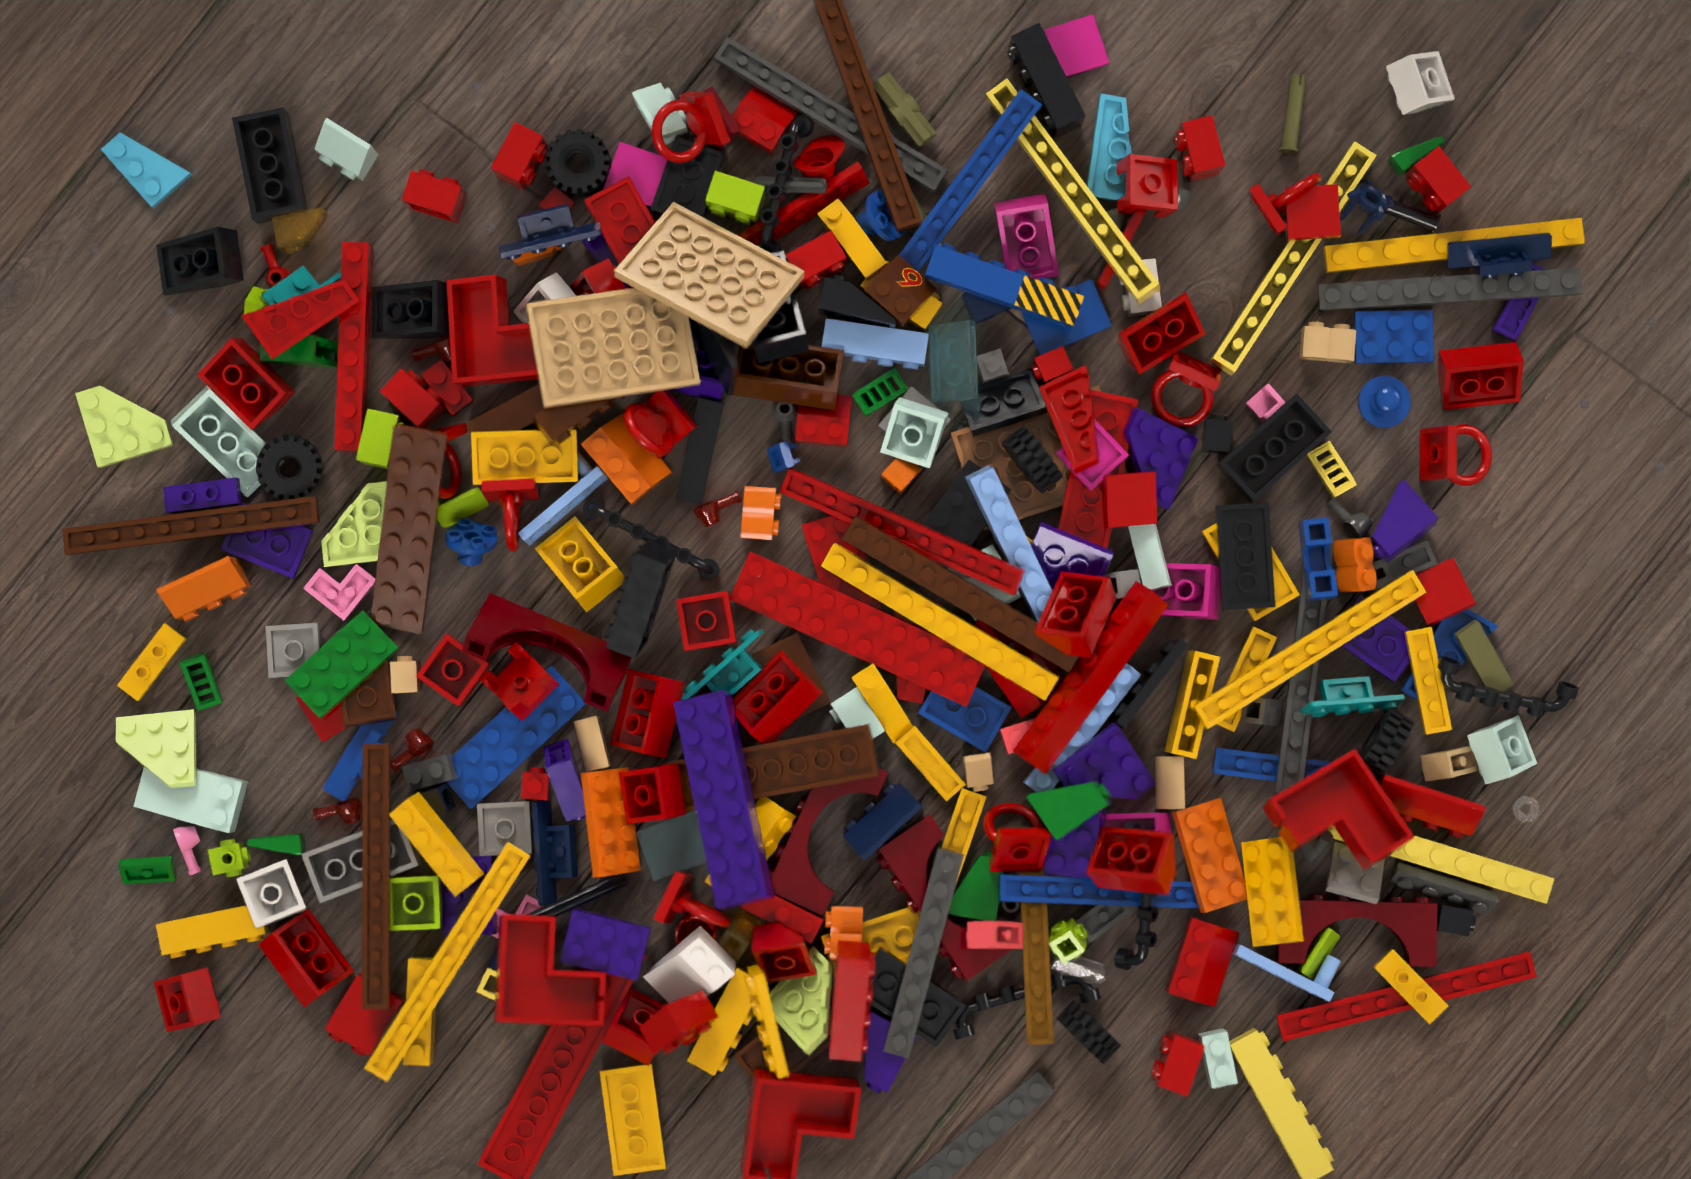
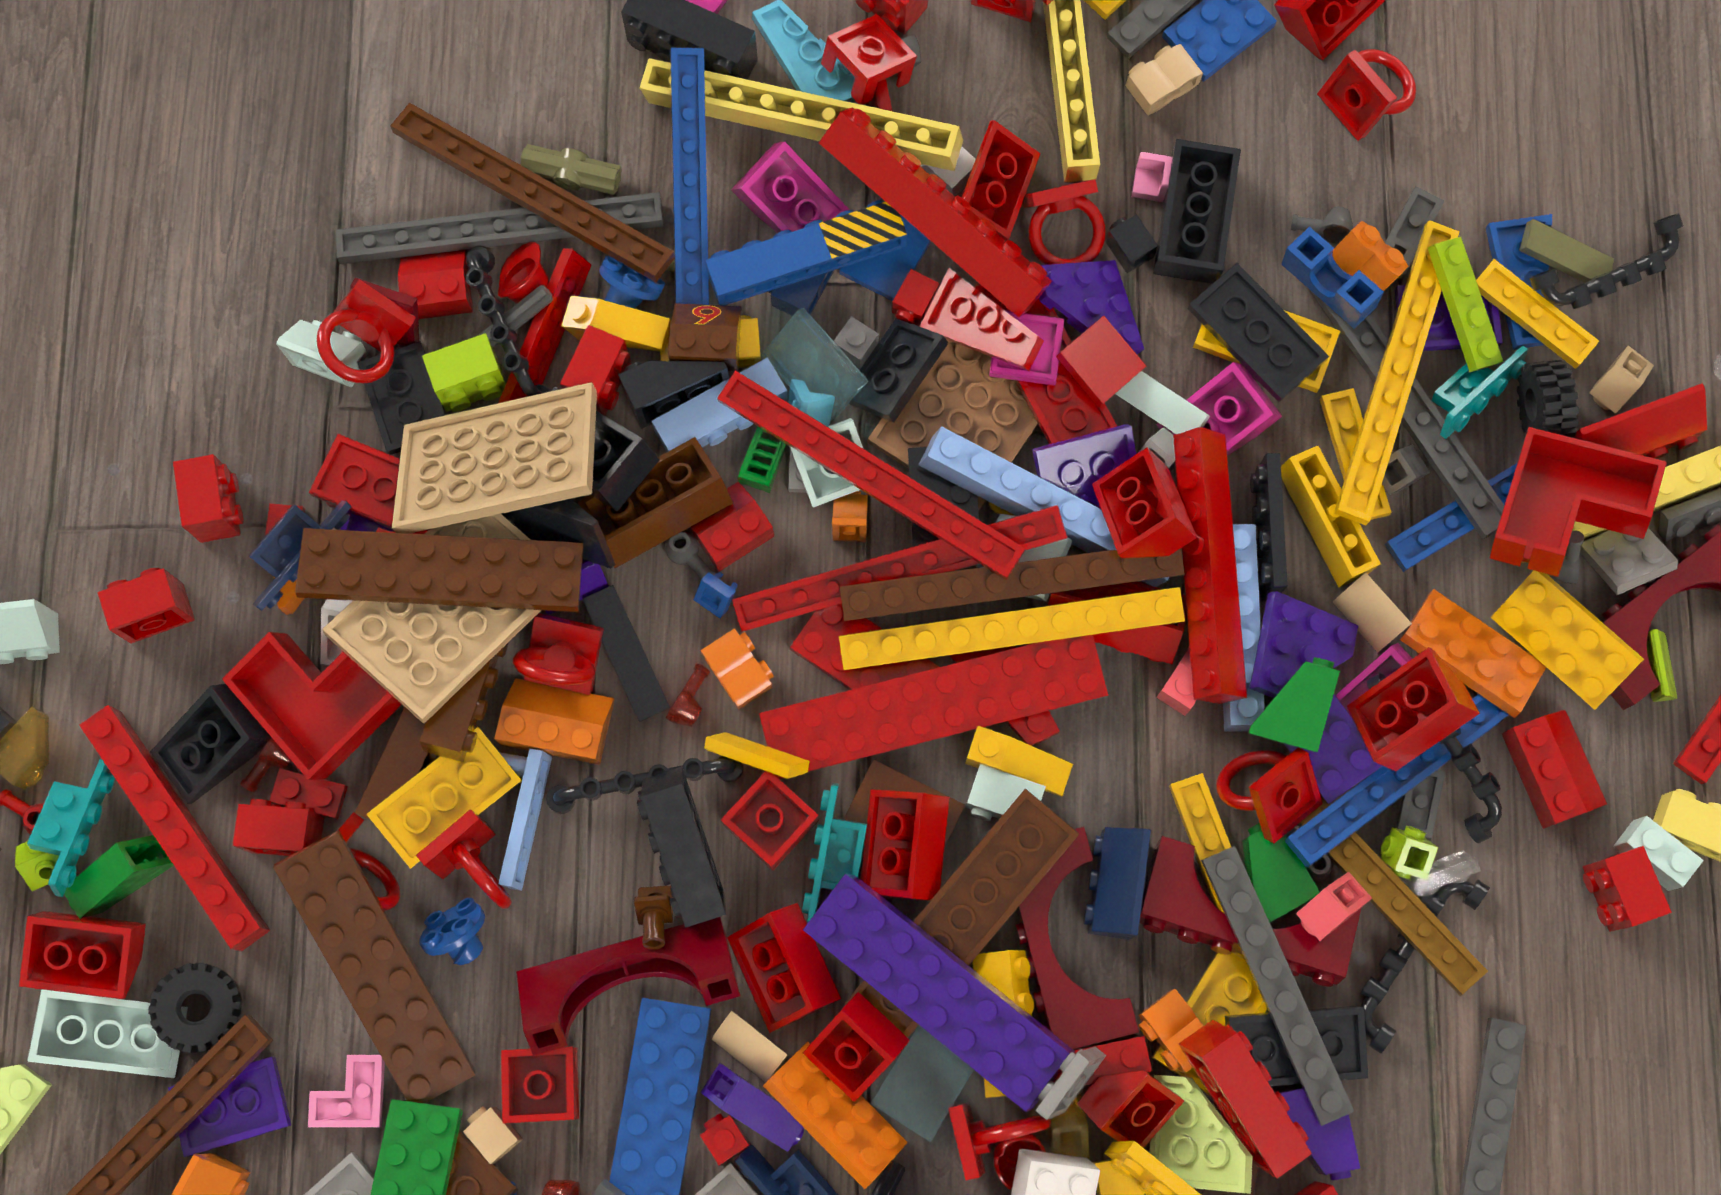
camera: 40 degrees left, 10 degrees down
(202, 495) = (121, 1113): dark purple plate -> none
(294, 319) = (80, 844): red wing -> none
(358, 530) = (322, 1018): yellowish green plate -> none
(377, 438) = (269, 902): lime brick -> none
(461, 507) = (417, 905): lime slope -> none
(521, 683) = (624, 1041): red panel -> none
(577, 143) = (262, 443): black tyre -> none
(580, 564) = (591, 865): yellow slope -> none
(594, 623) = (653, 913): none -> reddish brown bracket
(623, 320) = (439, 570): none -> reddish brown plate
(642, 167) = (346, 416): dark pink tile -> none
(728, 576) = (756, 755): none -> yellow tile
(762, 910) = (1076, 1072): none -> light grey plate
(925, 386) = (813, 404): none -> medium azure slope
(926, 463) = (871, 475): none -> red plate
(930, 763) = (1117, 785): yellow plate -> none
(975, 723) = (1127, 710): blue plate -> none
(978, 771) = (1173, 752): tan slope -> none
(1032, 459) = (973, 394): black tyre -> none
(1088, 1031) = (1511, 930): black tyre -> none
(1100, 326) = (935, 211): none -> red brick
(1317, 988) = (1689, 702): light blue piece -> none
(1339, 464) = (1281, 185): light yellow slope -> none
(1384, 401) = (1262, 93): blue plate -> none
(1388, 641) = (1465, 304): none -> lime plate
(1402, 523) = (1378, 184): dark purple slope -> none
(1445, 592) = (1478, 219): red tile -> none
(1502, 750) = (1658, 329): light aqua slope -> none

